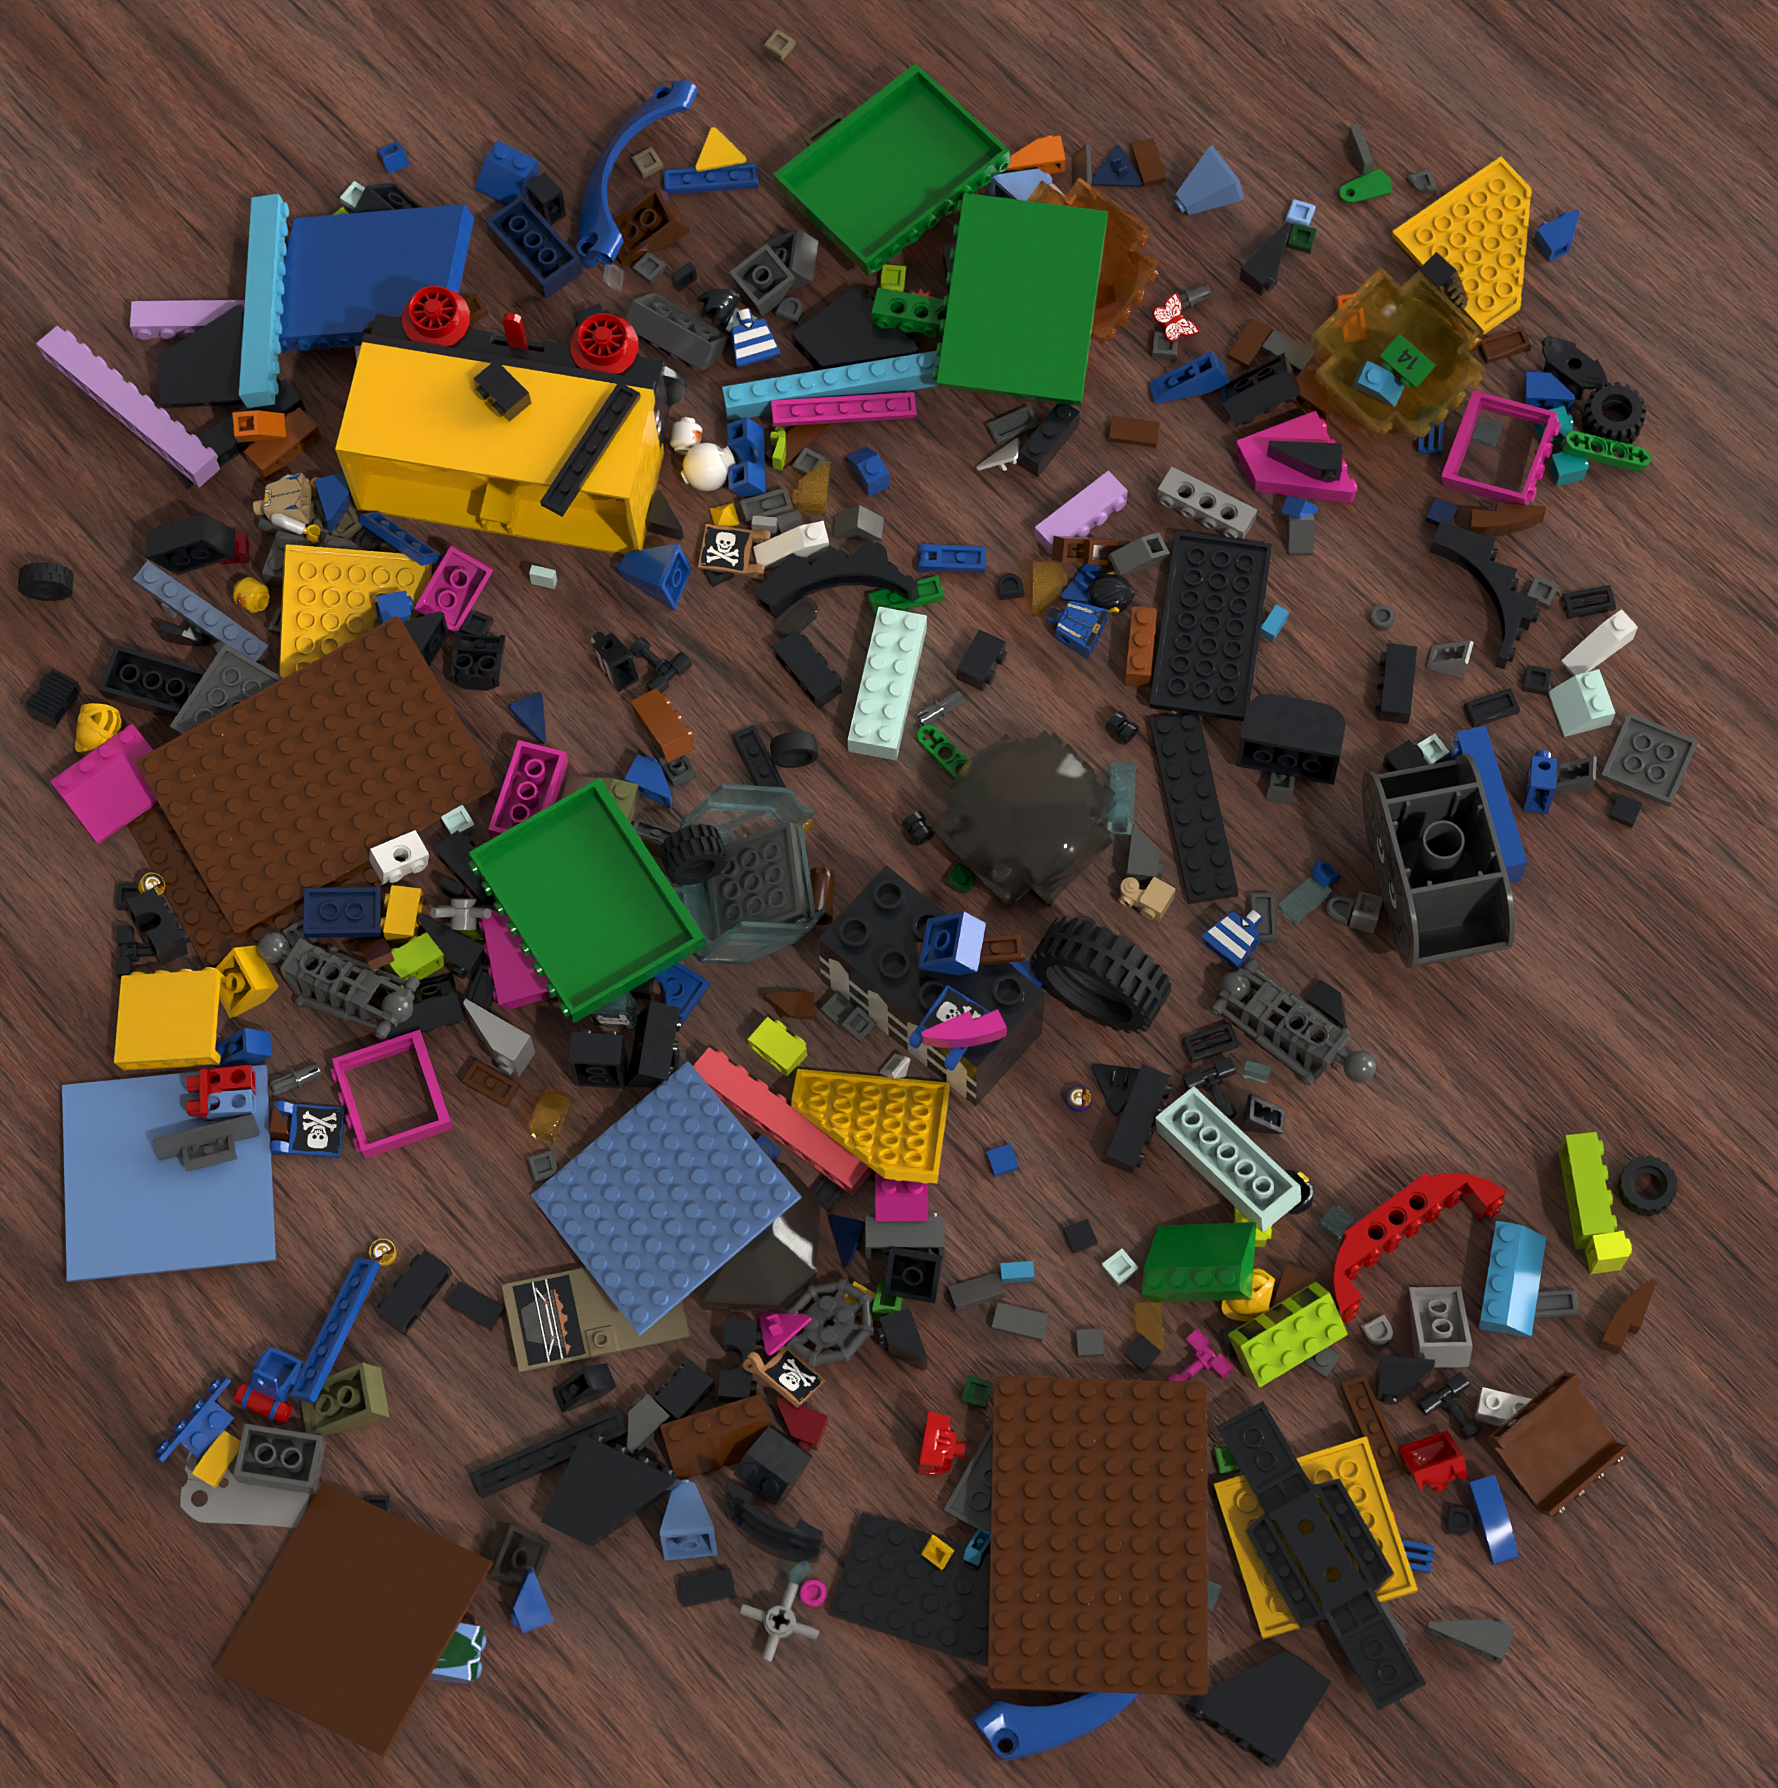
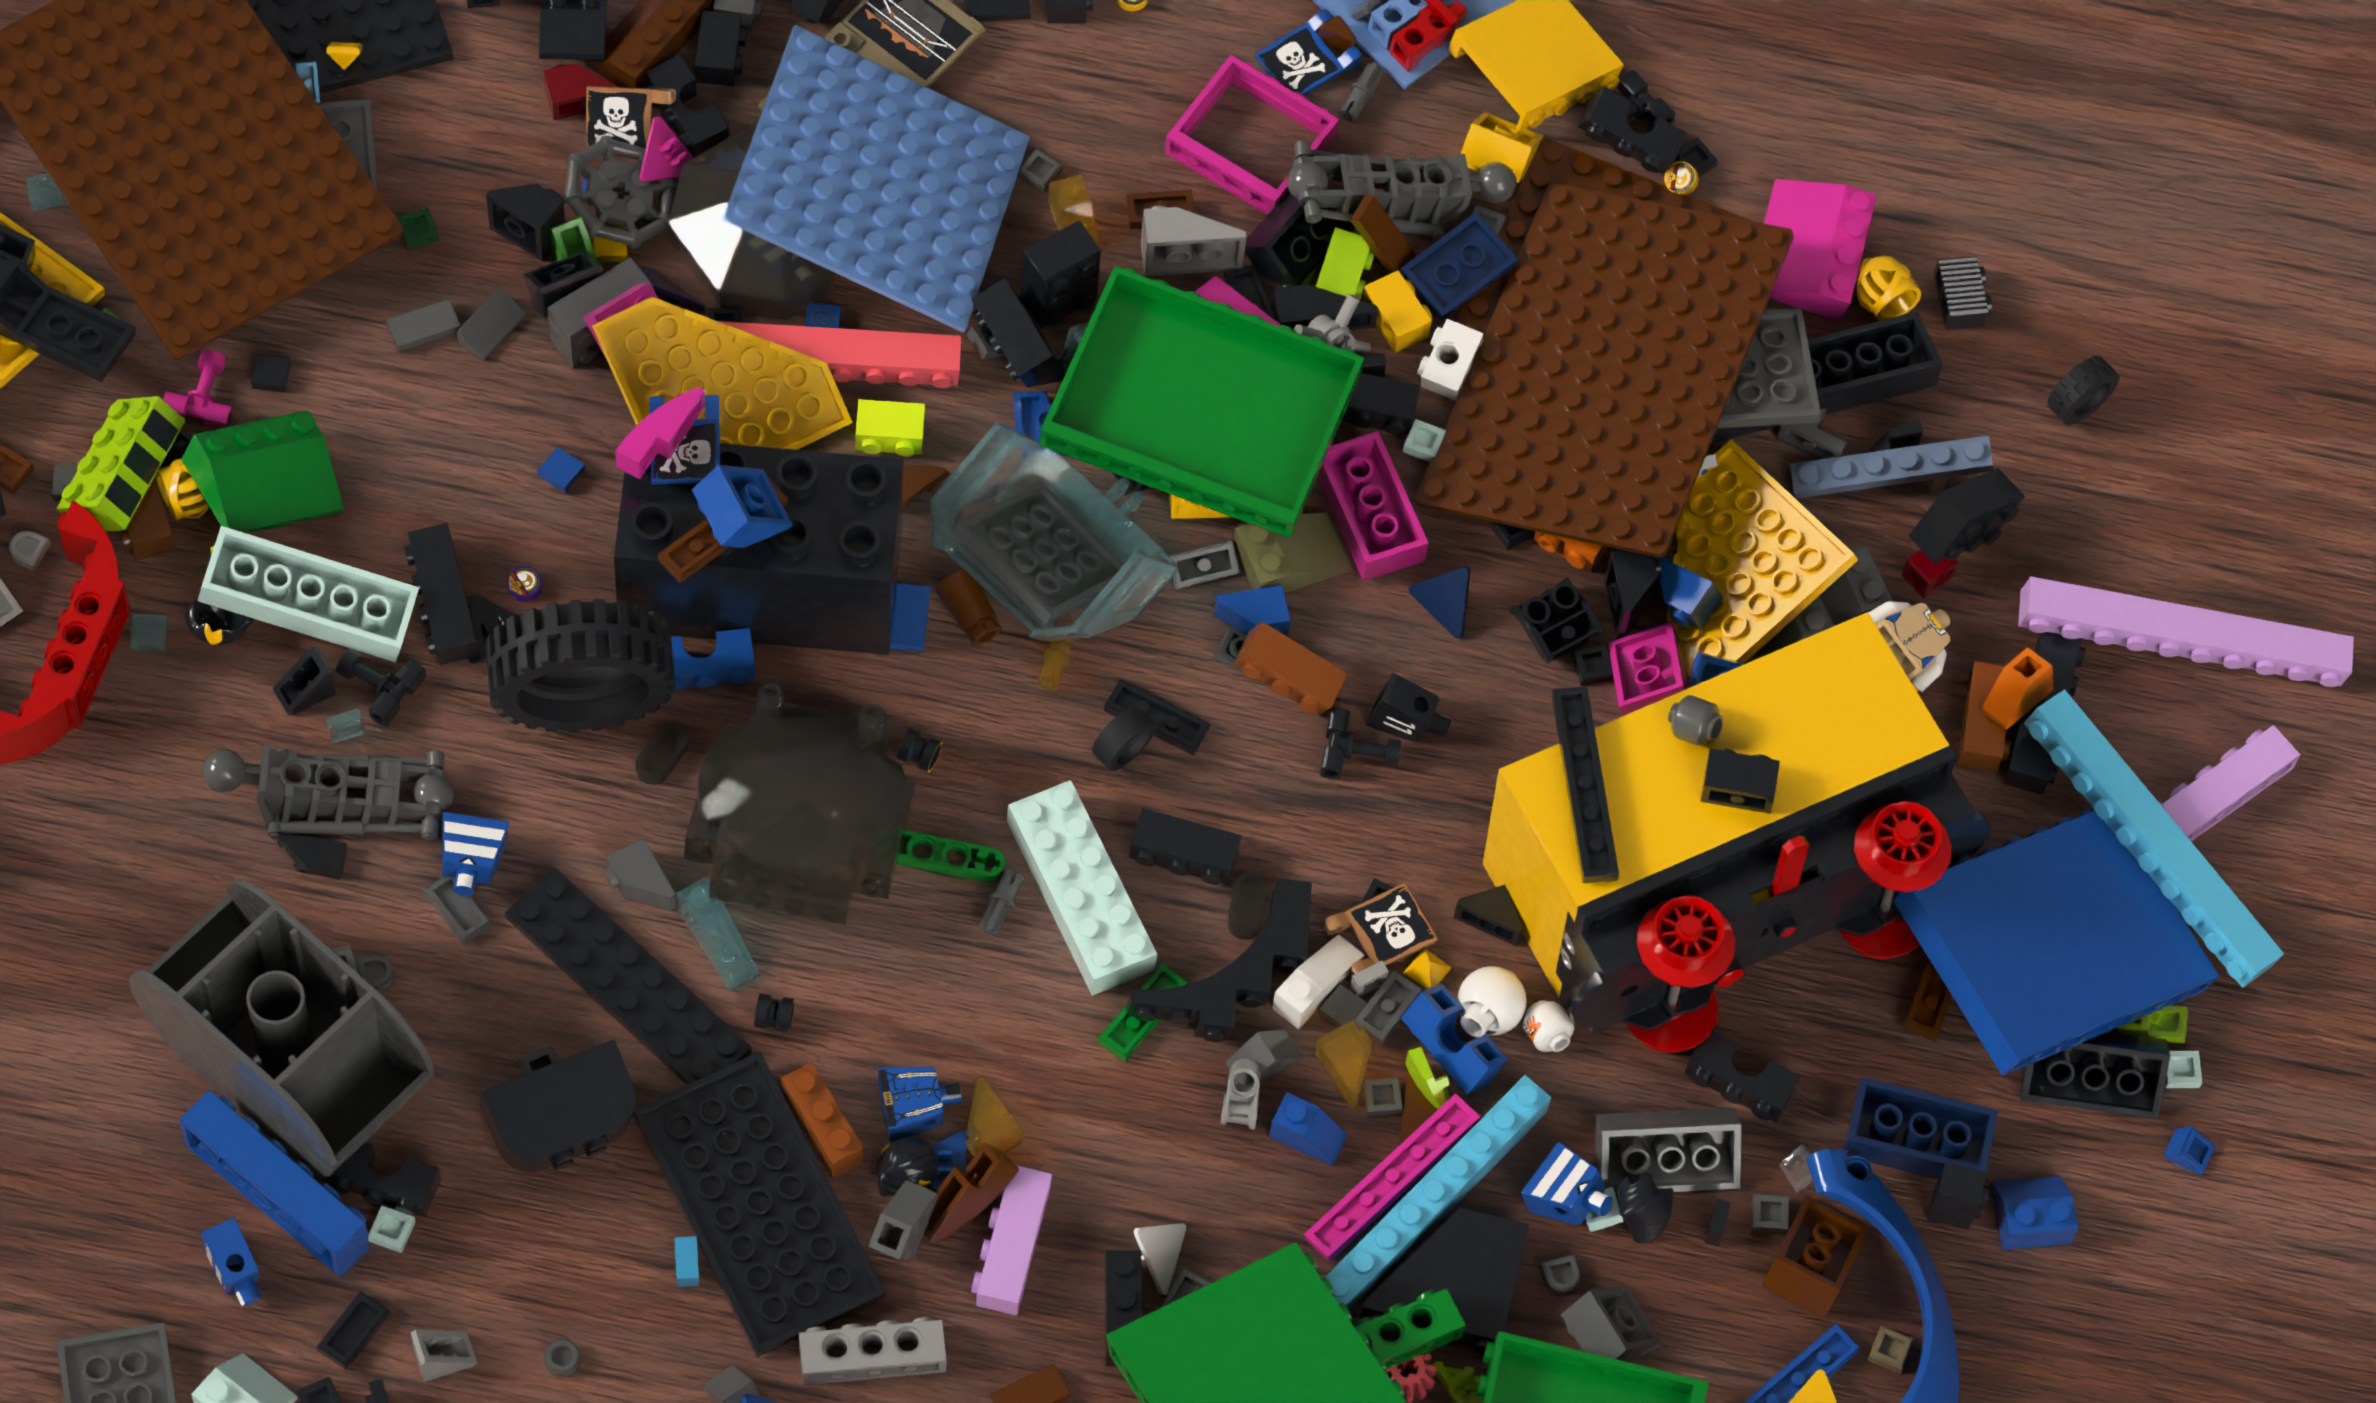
camera: 135 degrees right, 5 degrees down
(204, 365) = (2154, 729): black slope -> none
(244, 1048) = (1438, 84): blue slope -> none
(251, 595) = (1861, 529): yellow head -> none
(496, 441) = (1695, 720): none -> dark grey head
(657, 572) = (1438, 838): blue slope -> none
(693, 854) = (1131, 528): black tyre -> none
(763, 279) = (1619, 1263): dark grey slope -> none
(890, 507) = (1242, 1100): none -> light grey piece
(938, 1446) = (418, 145): red brick -> none
(951, 558) = (1123, 1088): blue plate -> none
(981, 660) = (995, 985): black brick -> none
(1010, 587) = (1031, 1103): black tile -> none
(1017, 1272) = (462, 368): dark azure piece -> none
(1080, 1236) = (420, 446): black tile -> none
(1090, 1343) = (334, 350): dark grey tile -> none
(1120, 1267) = (354, 437): light aqua plate -> none
(1149, 1322) = (278, 399): clear yellow slope -> none
(1151, 901) = (597, 835): tan brick -> none
(1214, 1051) = (449, 717): black tile -> none
(1303, 900) = (423, 957): clear light blue tile -> none
(1324, 873) = (419, 995): blue tile -> none
(1396, 683) = (487, 1277): black brick -> none
(1577, 775) = (195, 1302): dark grey slope -> none
(1625, 810) = (109, 1306): black tile -> none

